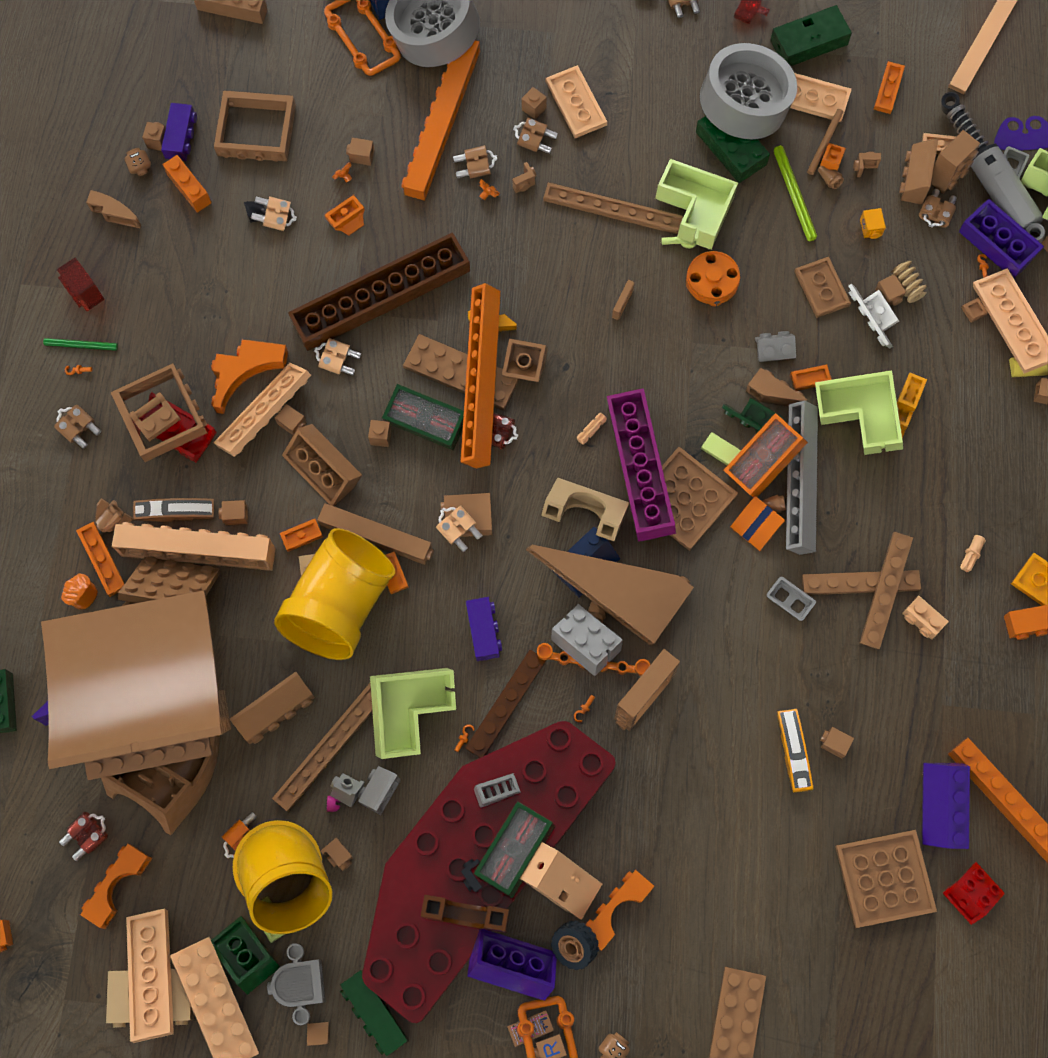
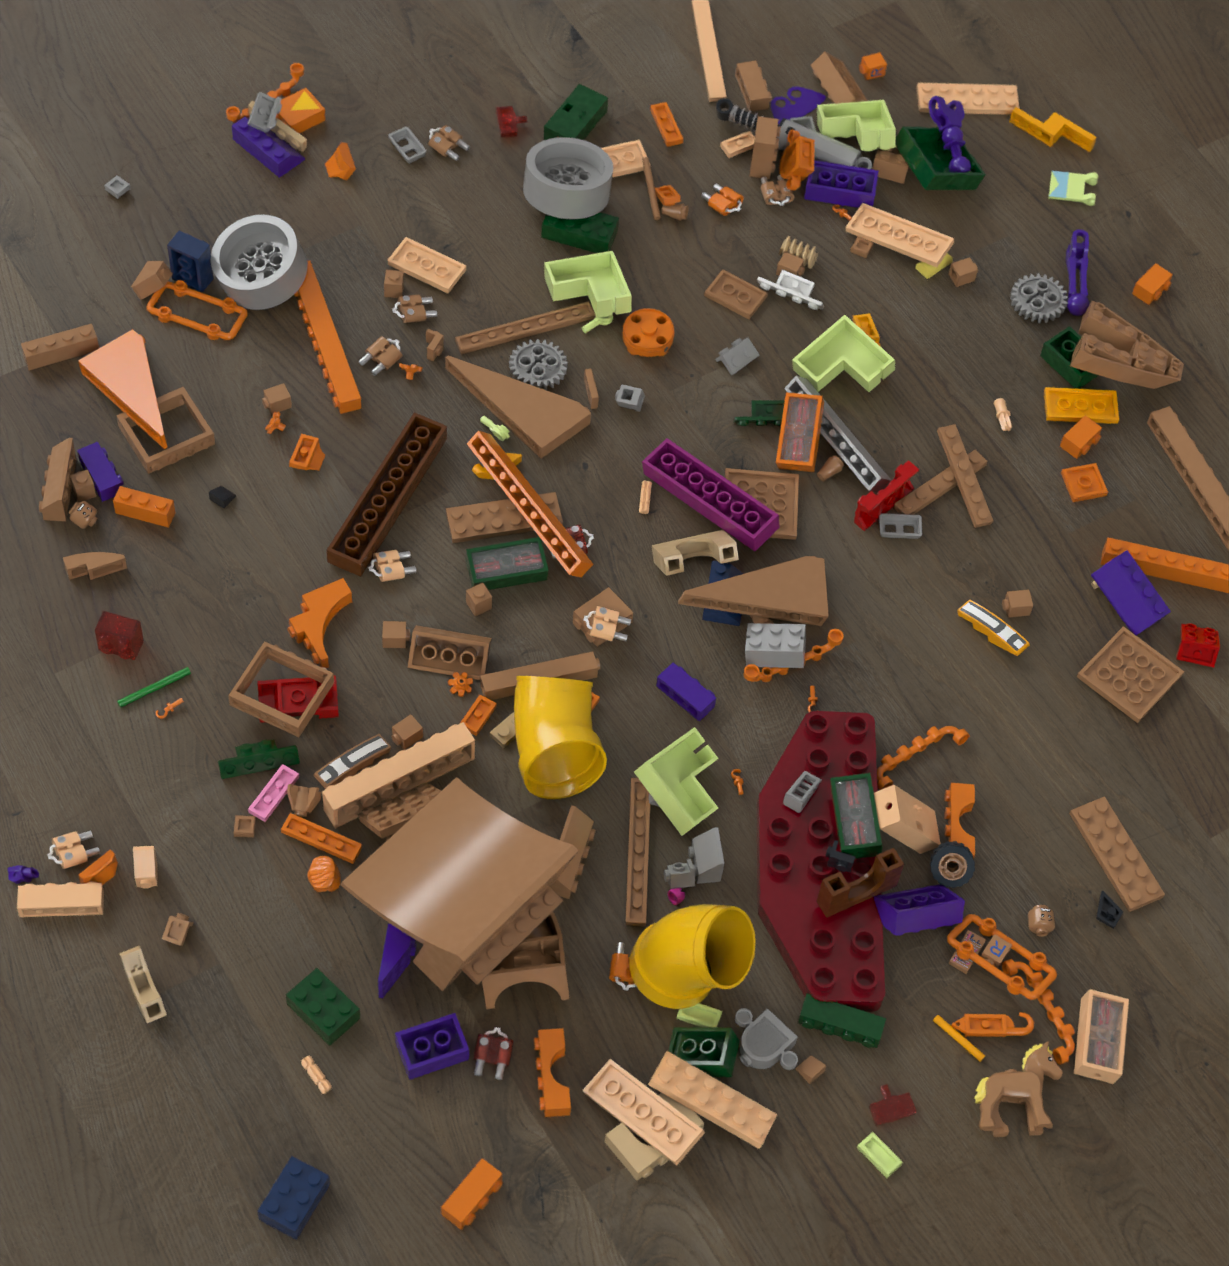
camera: 45 degrees left, 15 degrees down
(41, 796) = (432, 1046): none -> dark purple brick
(56, 508) = (244, 826): none -> medium nougat tile
(74, 424) = (205, 749): medium nougat piece -> none
(89, 497) = (273, 793): none -> bright pink plate
(107, 456) = (258, 758): none -> dark green bracket
(130, 131) = (58, 485): none -> medium nougat slope
(158, 421) = (290, 693): medium nougat plate -> none
(254, 62) = (125, 378): none -> slope
(262, 409) = (364, 638): light nougat plate -> none
(275, 214) = (243, 485): light nougat piece -> none
(313, 497) = (460, 687): none -> orange plant
(505, 704) = (750, 736): reddish brown plate -> none
(516, 292) = (500, 432): none -> yellowish green plate
(524, 360) = (551, 474): medium nougat slope -> none
(557, 294) = (531, 413): none -> medium nougat slope
(593, 236) = (538, 364): none -> light grey gear
(646, 690) = (855, 645): medium nougat window -> none
(649, 329) = (630, 392): none -> light grey brick
(663, 813) = (919, 744): none -> orange bar
(720, 449) = (758, 453): yellowish green tile -> none
(757, 523) = (831, 487): orange slope -> none
(771, 390) = (762, 386): medium nougat slope -> none
(771, 568) = (873, 505): none -> red piece
(795, 193) = (658, 238): lime axle -> none
(807, 377) = (781, 363): orange tile -> none
(866, 160) = (694, 185): medium nougat bracket -> none
(872, 223) = (736, 227): light orange brick -> none
(883, 192) = (725, 200): none -> orange piece
(918, 171) = (741, 169): medium nougat slope -> none
(925, 618) = (1006, 480): light nougat bracket -> none
(974, 192) = (797, 159): none -> orange piece
(997, 666) = (1084, 482): none -> orange tile
(998, 94) = (753, 86): none -> medium nougat brick

